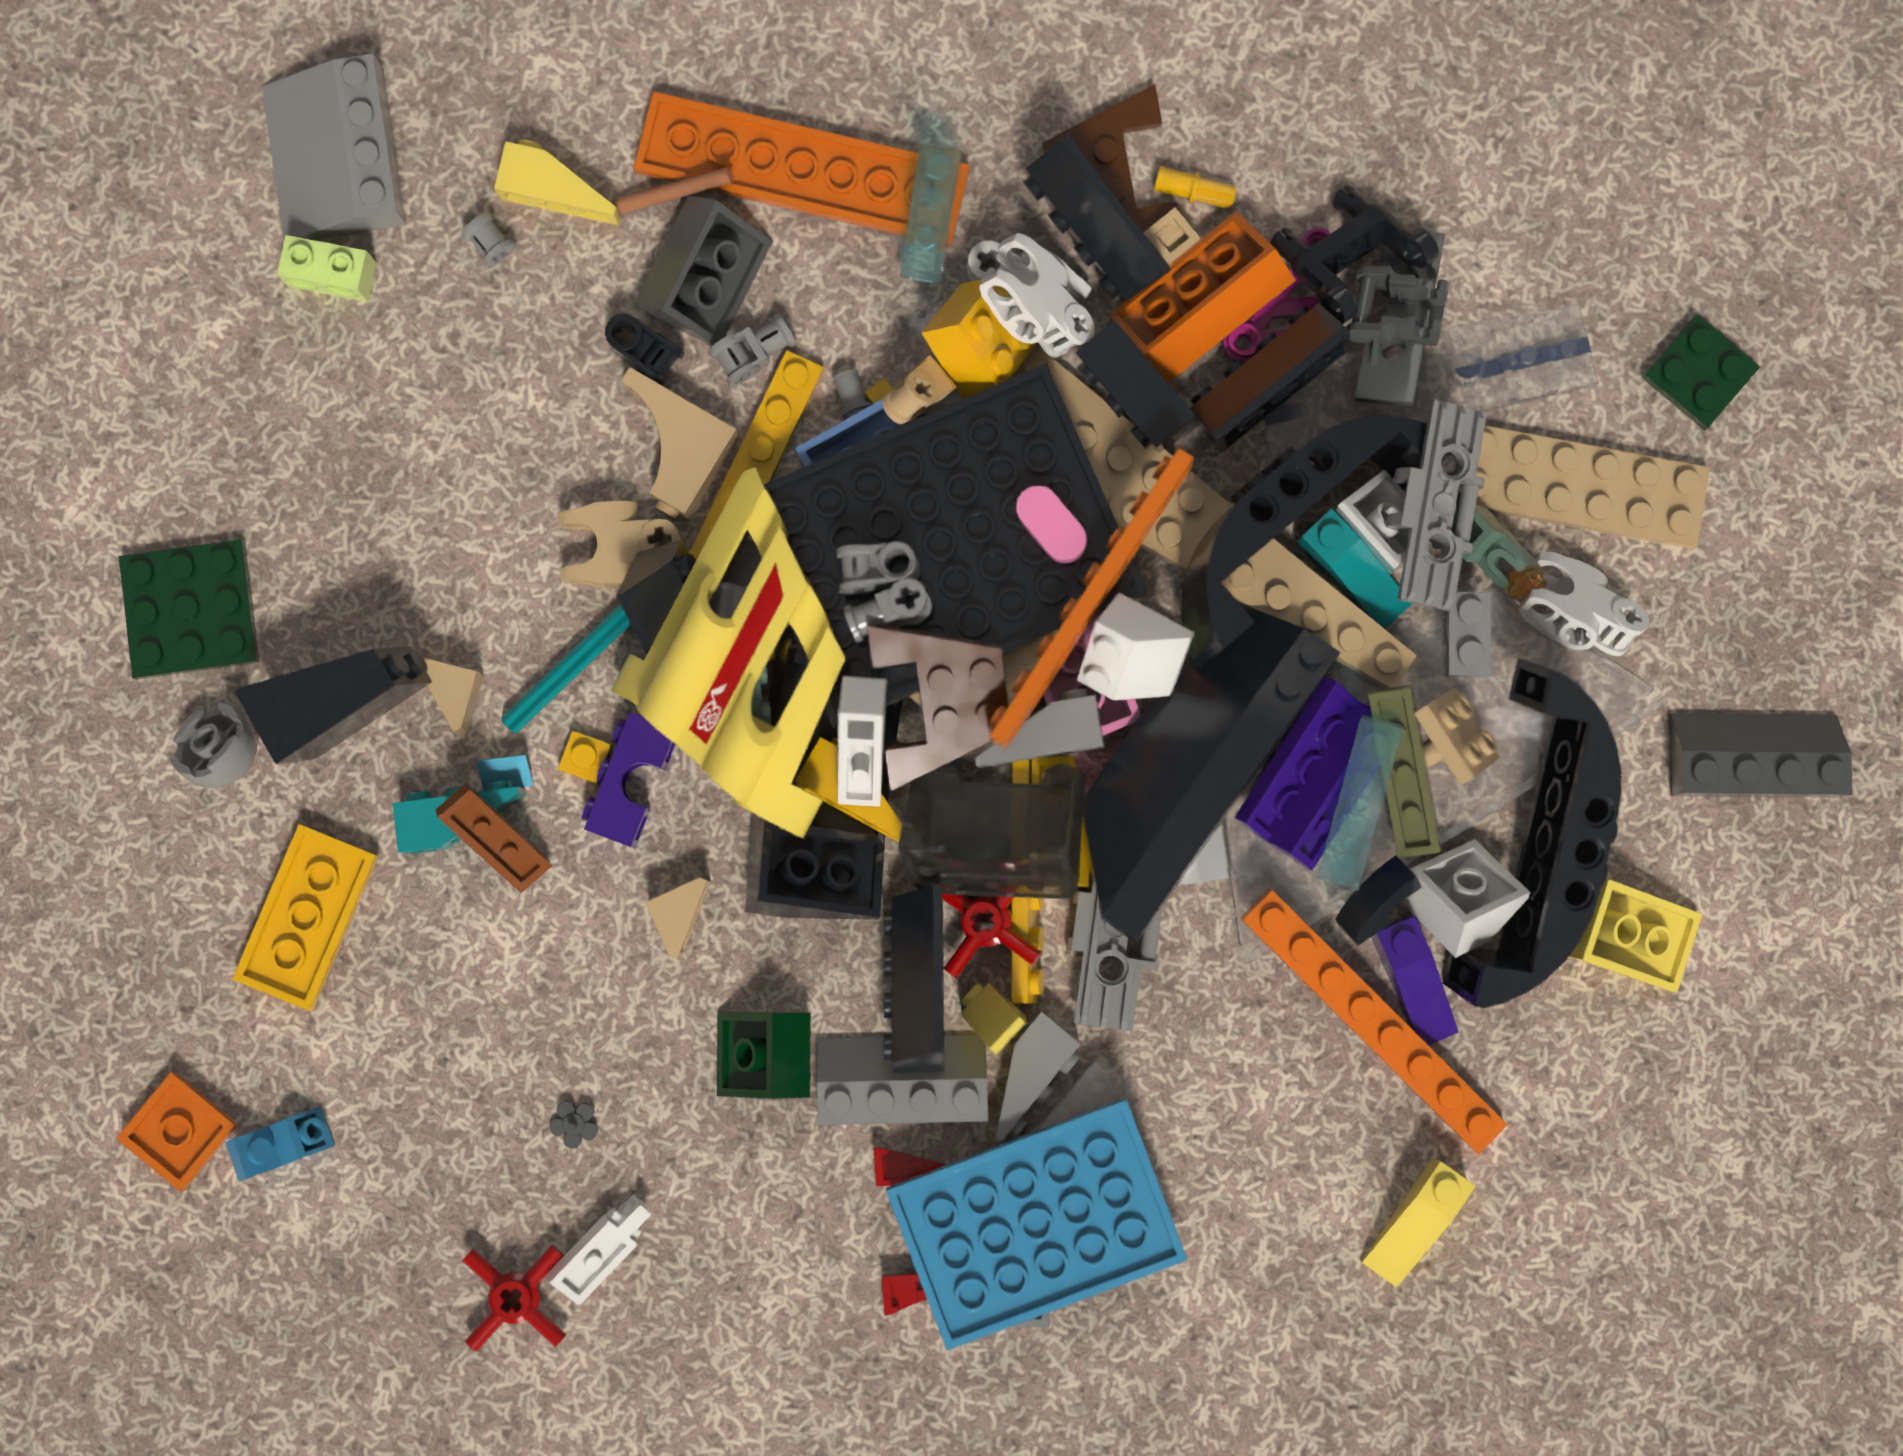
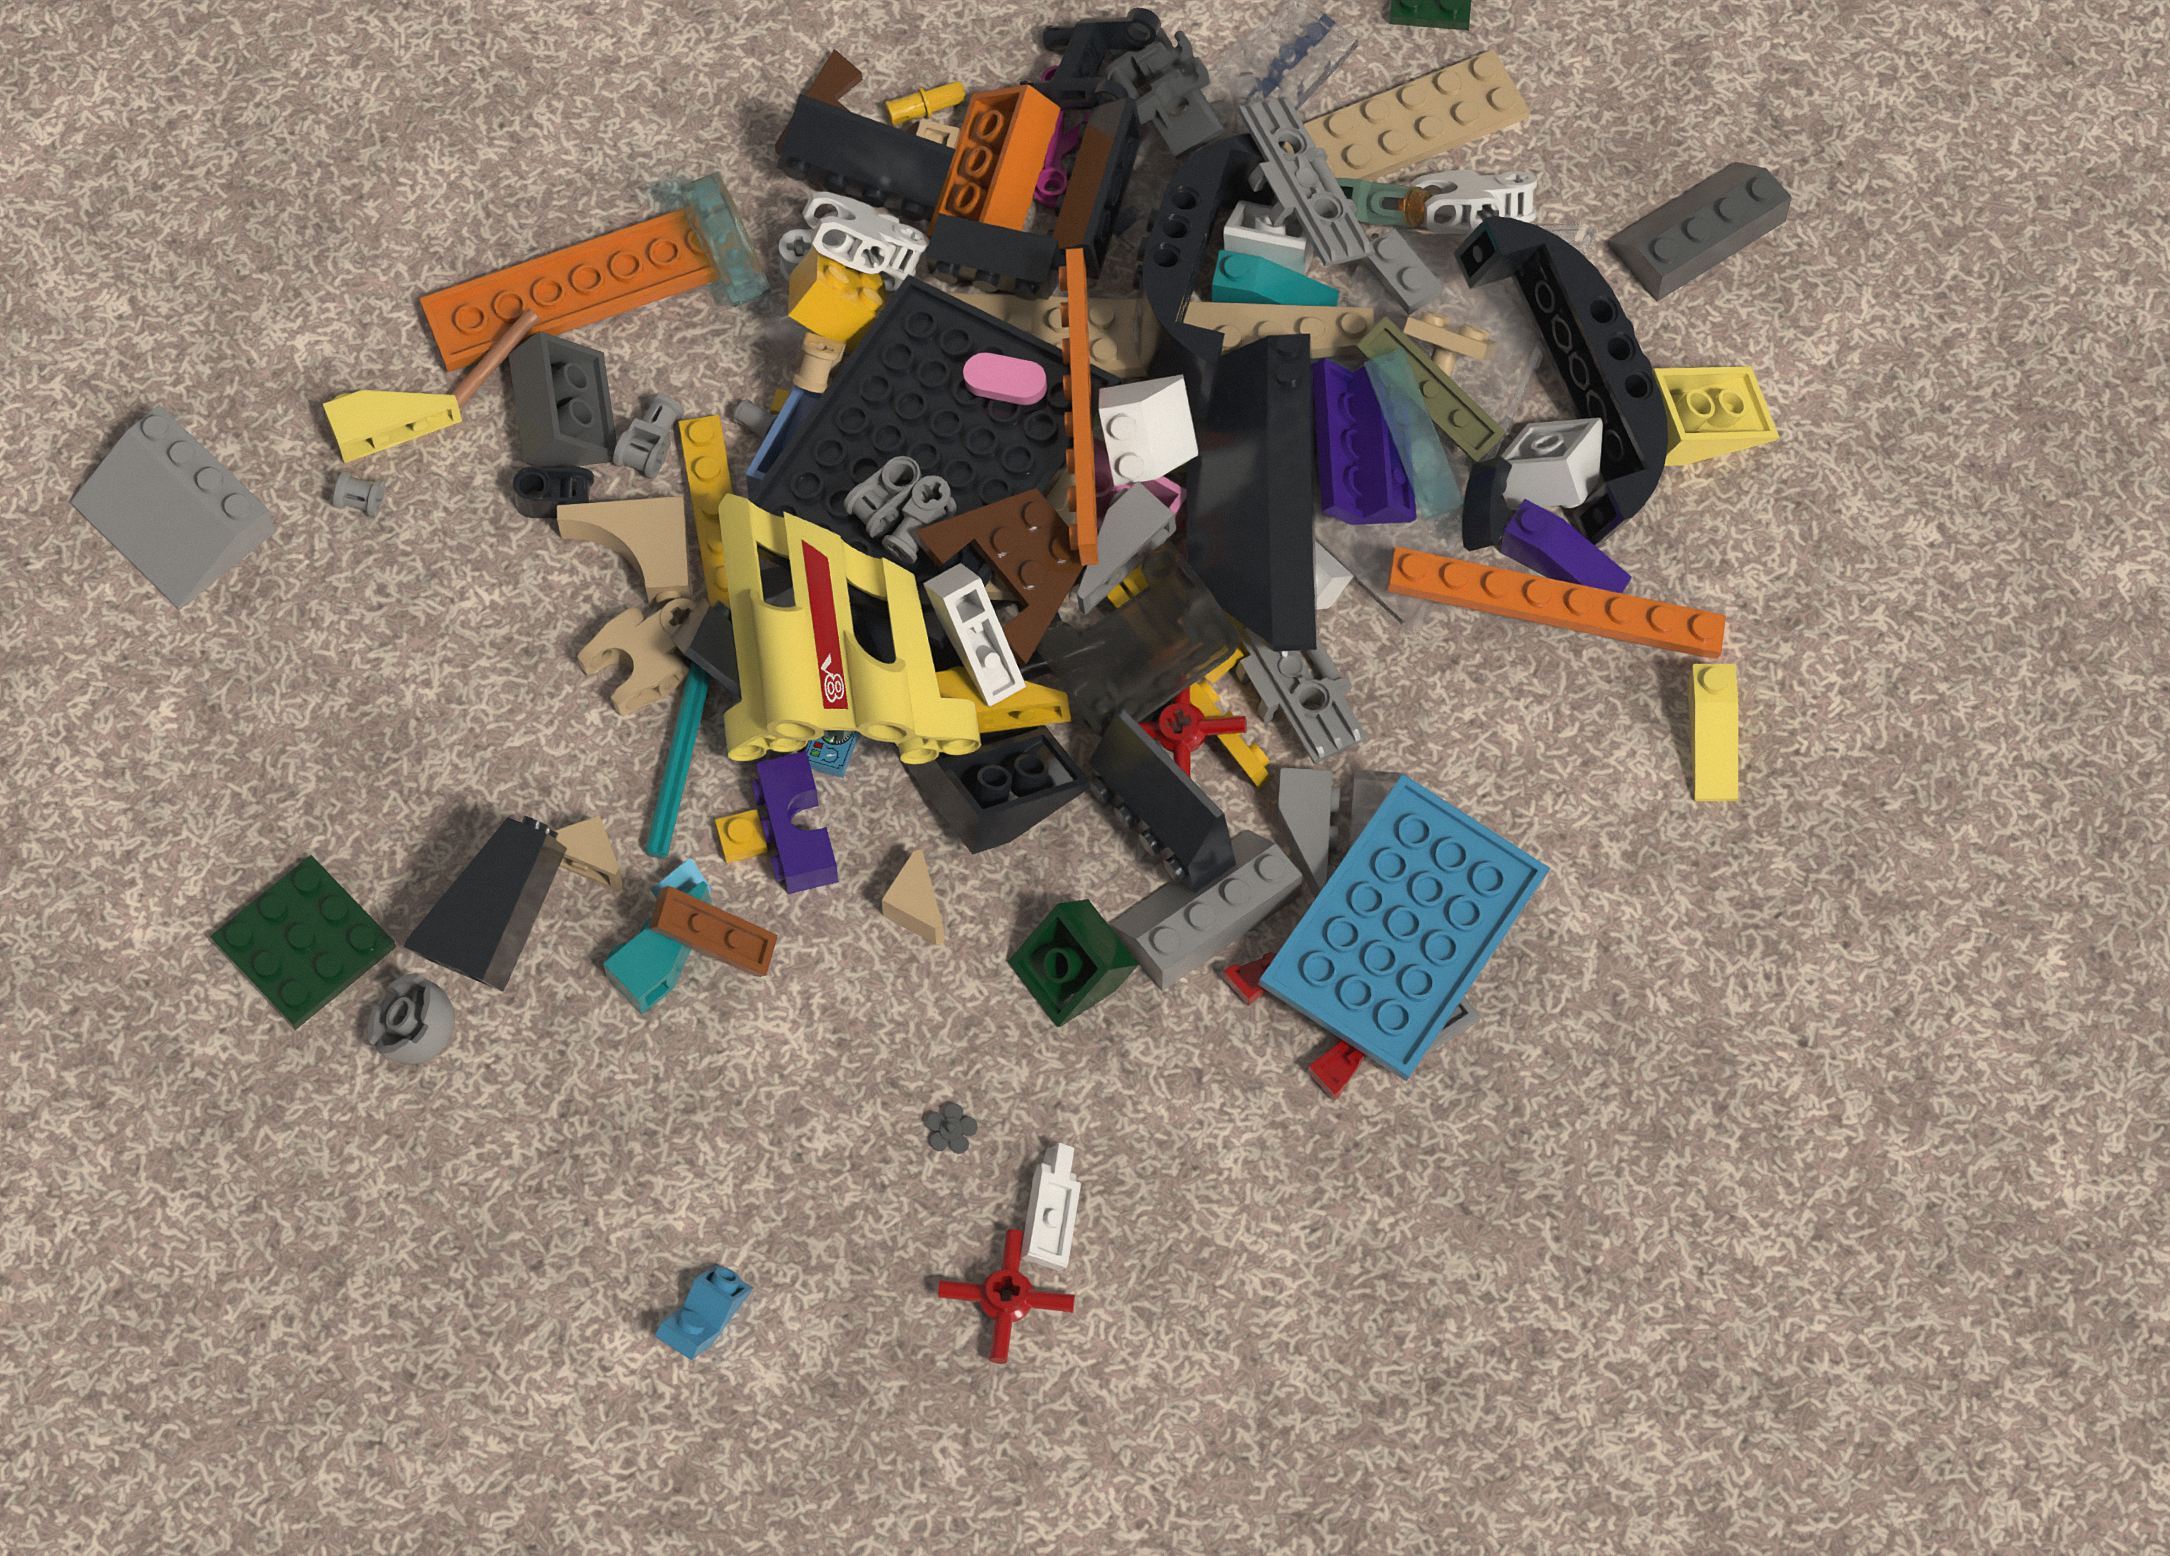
camera: 35 degrees left, 20 degrees down
(177, 1131) = (603, 1363): orange plate -> none
(305, 917) = (590, 1115): yellow plate -> none
(326, 268) = (234, 597): yellowish green brick -> none
(992, 1015) = (1246, 791): light yellow slope -> none

